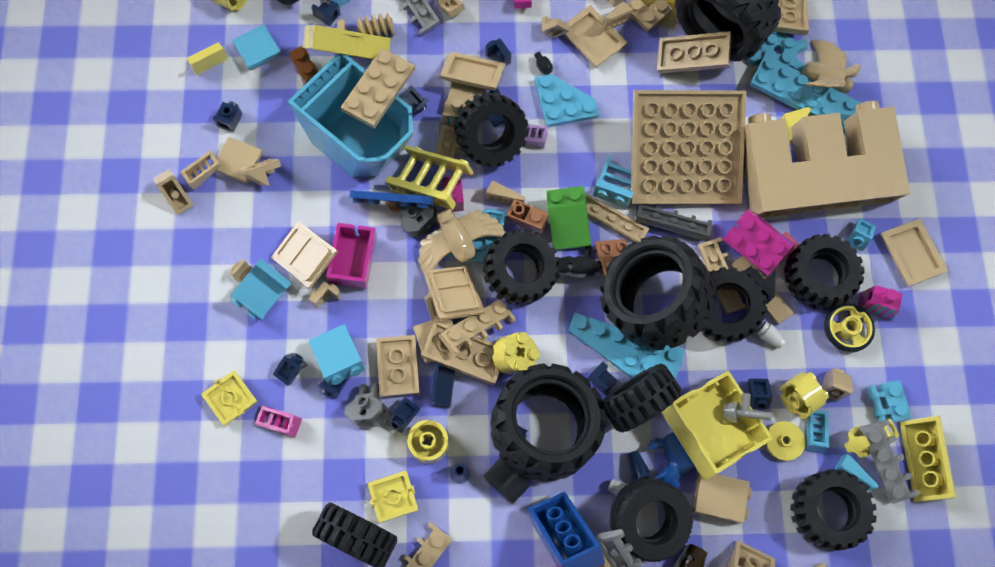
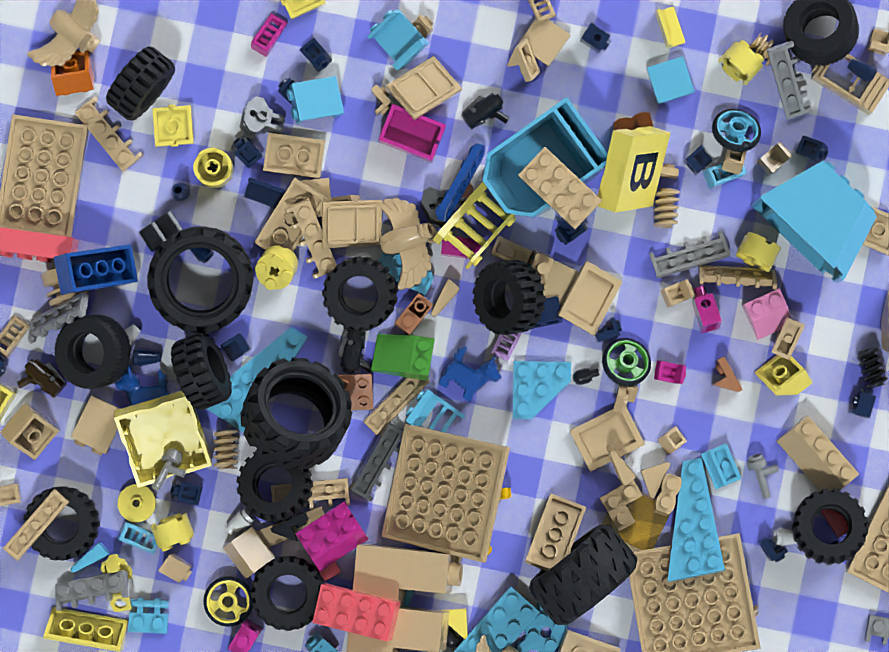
camera: 110 degrees right, 15 degrees up
(315, 199) = (482, 109): none -> black piece
(521, 29) = (630, 346): none -> bright green wheel
(574, 158) = (468, 378): none -> blue animal
(706, 362) = (225, 449): none -> tan piece
(798, 318) = (249, 552): none -> tan slope
(828, 193) = (356, 612): none -> coral brick
(849, 532) = (36, 525): none -> tan tile

